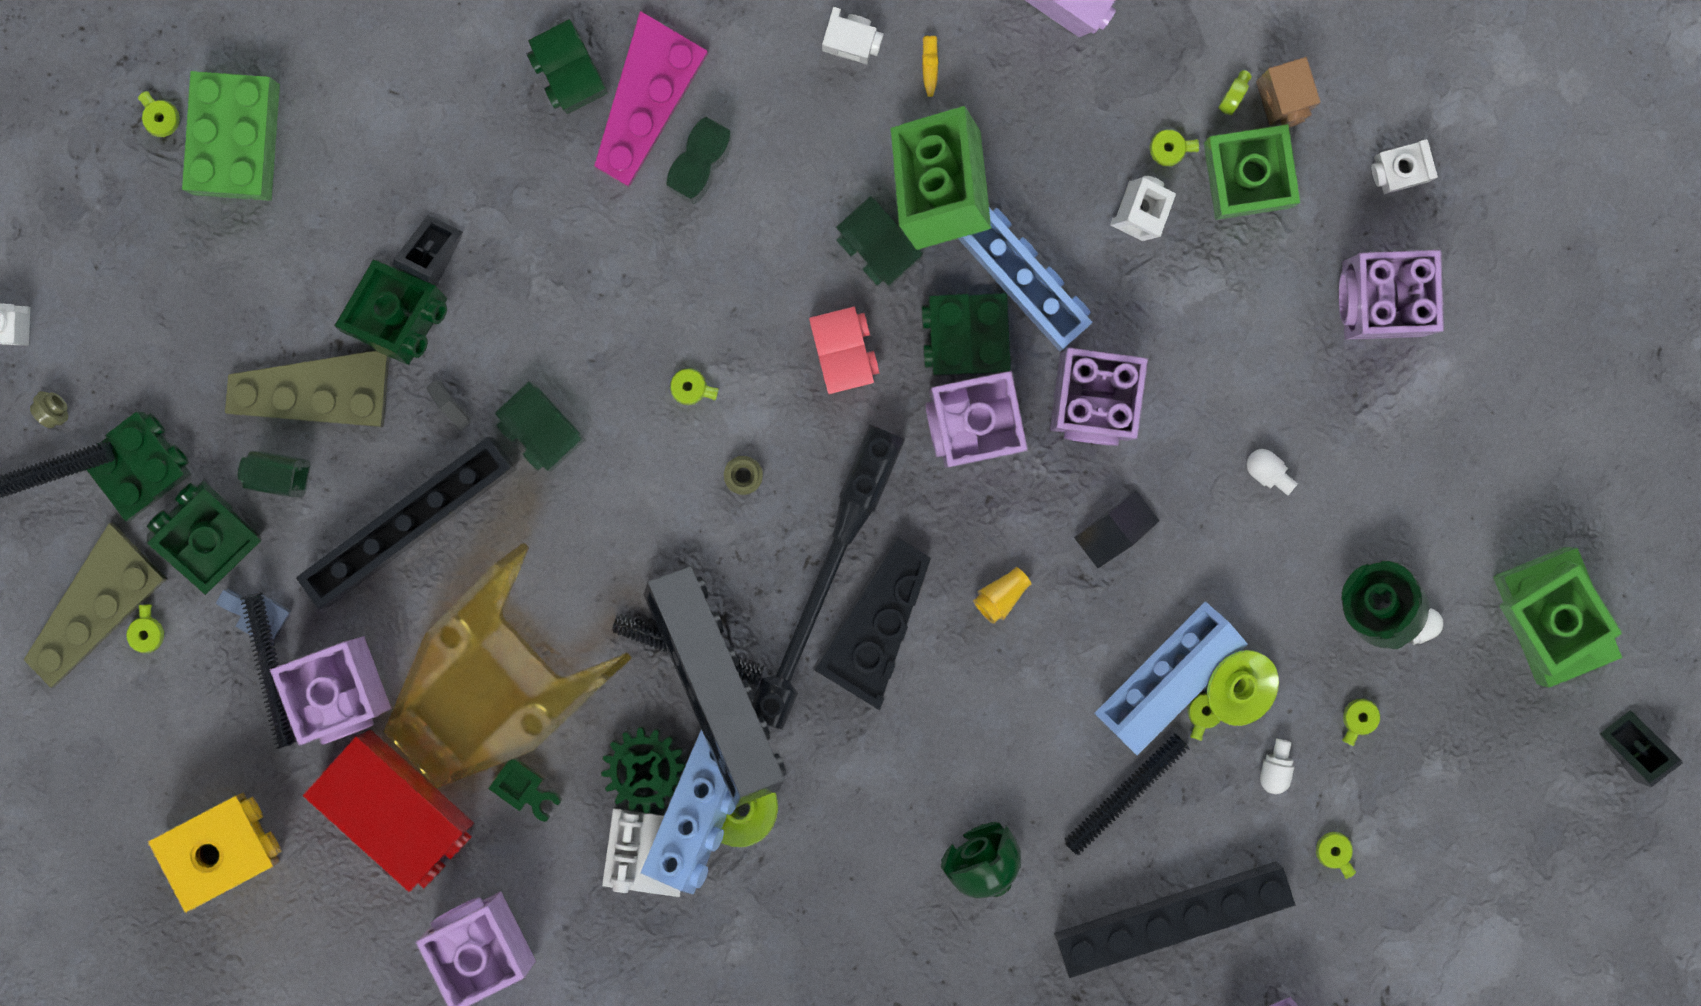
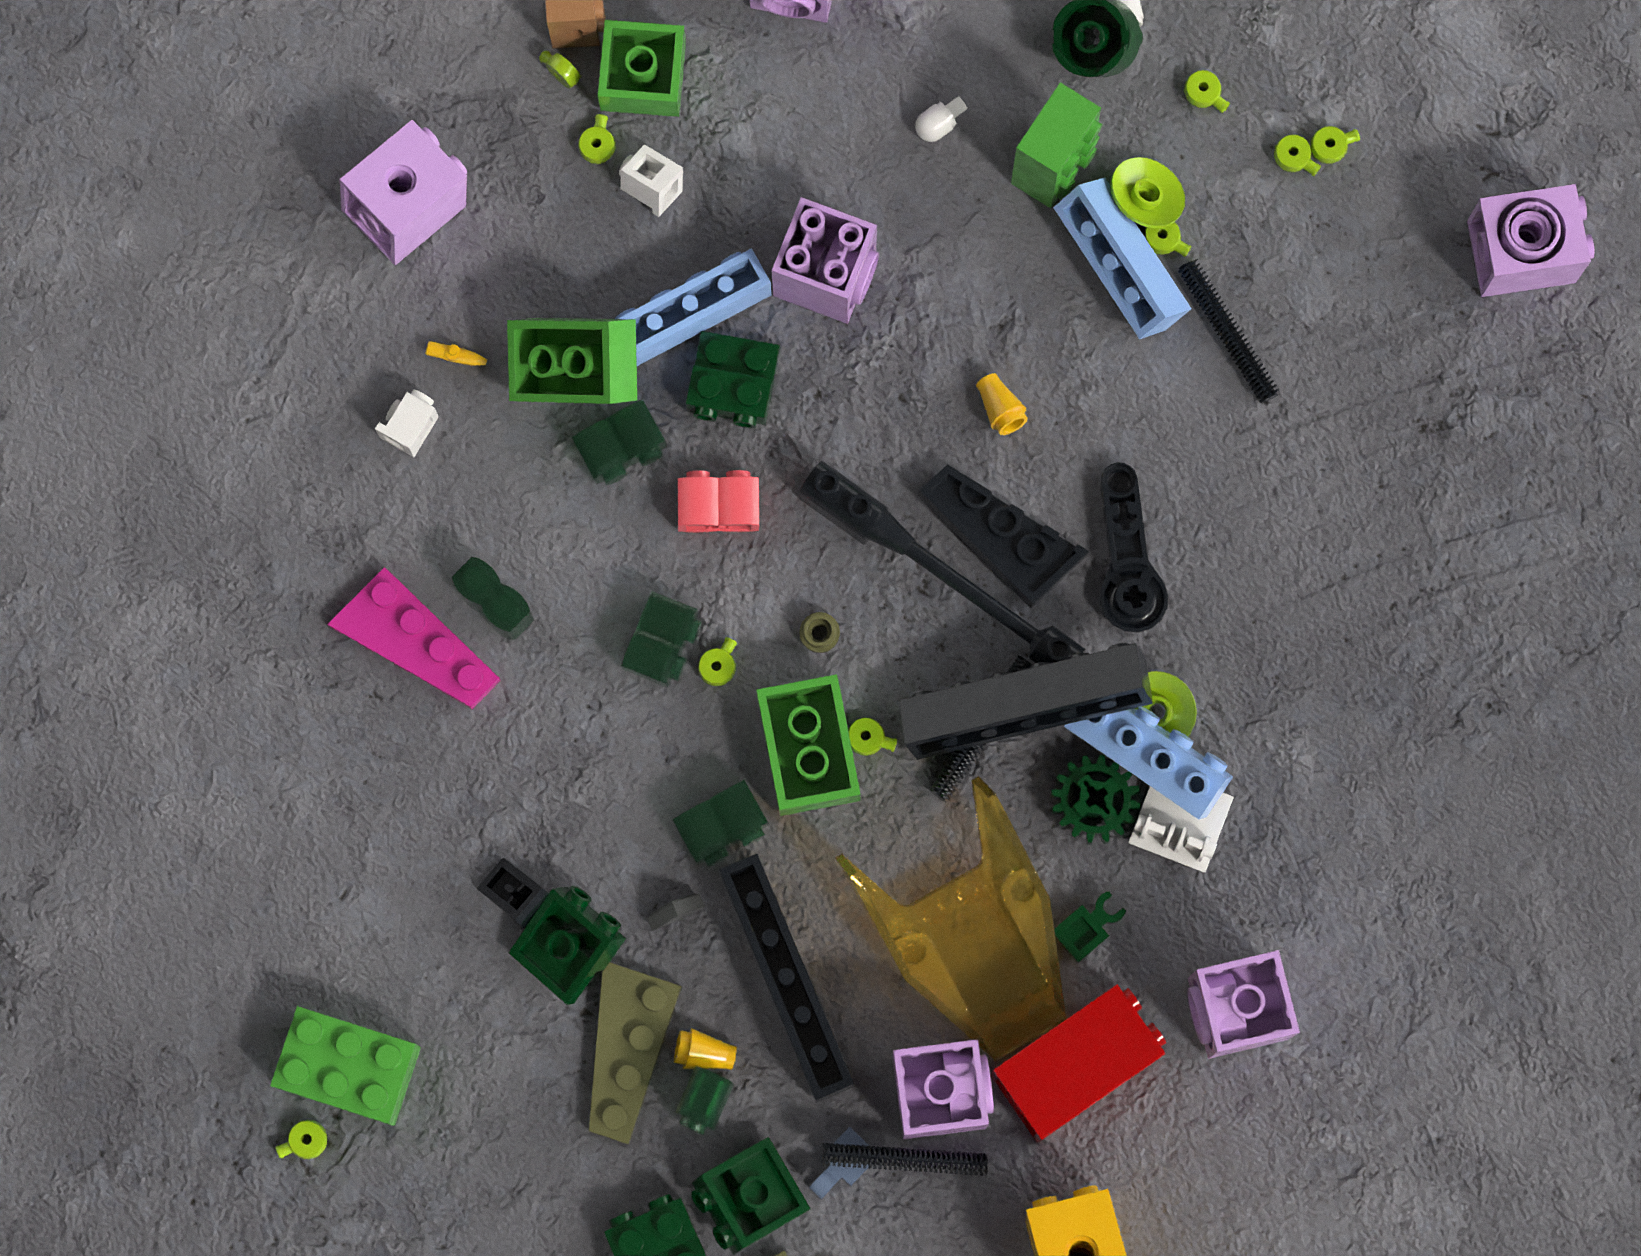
camera: 80 degrees left, 10 degrees down
(325, 459) = (704, 1051): none -> yellow cone
(567, 67) = (365, 709): dark green brick -> none
(628, 491) = (808, 745): none -> bright green brick
(656, 553) = (877, 740): none -> lime piece
(699, 328) = (660, 640): none -> clear green brick
(878, 750) = (1129, 560): none -> black beam
(975, 420) = (820, 380): lavender brick -> none
(984, 863) = (1264, 480): dark green cylinder -> none
(1117, 529) = (962, 280): black slope -> none
(1174, 919) = (1363, 311): black brick -> none
(1258, 589) = (1056, 146): none -> bright green brick
(1277, 768) = (1236, 179): white cylinder -> none
(1312, 827) = (1300, 161): none -> lime piece

